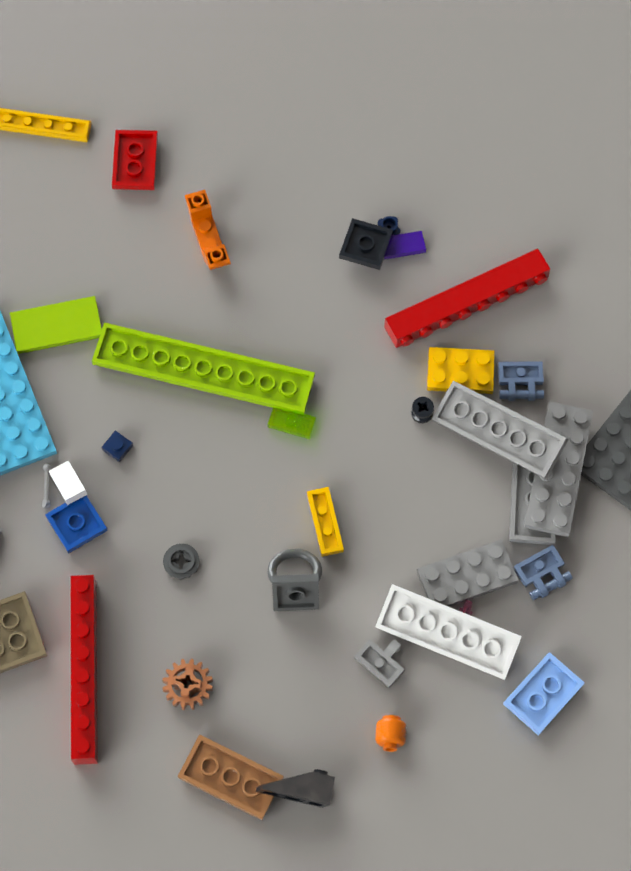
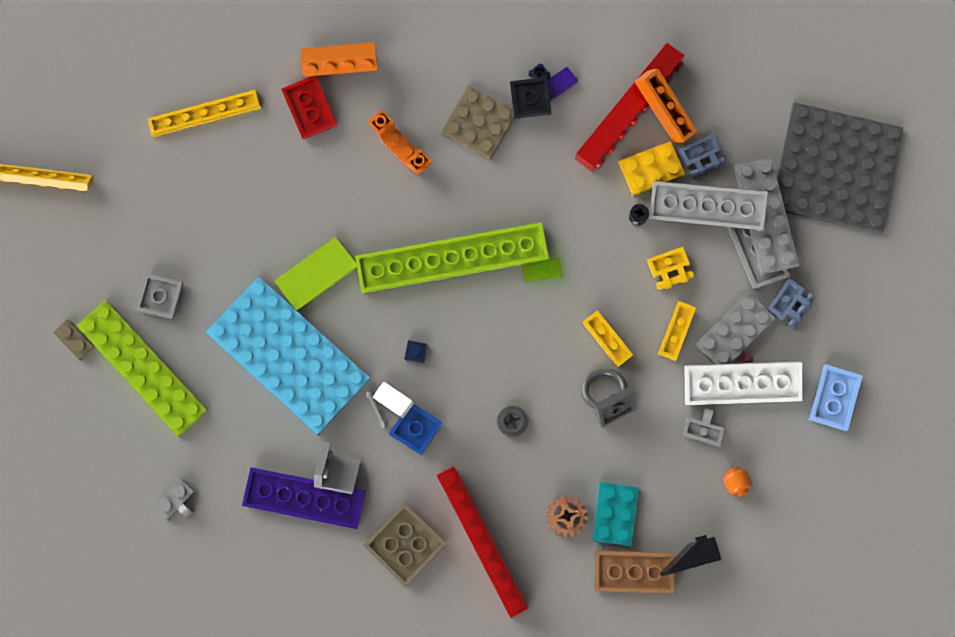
camera: 25 degrees left, 10 degrees up
(188, 125) = (338, 59): none -> orange brick
(241, 707) = (615, 514): none -> teal plate
(301, 248) = (478, 123): none -> dark tan plate
(403, 546) = (676, 331): none -> yellow plate
(429, 472) = (669, 262): none -> yellow plate
(503, 309) = (665, 106): none -> orange brick

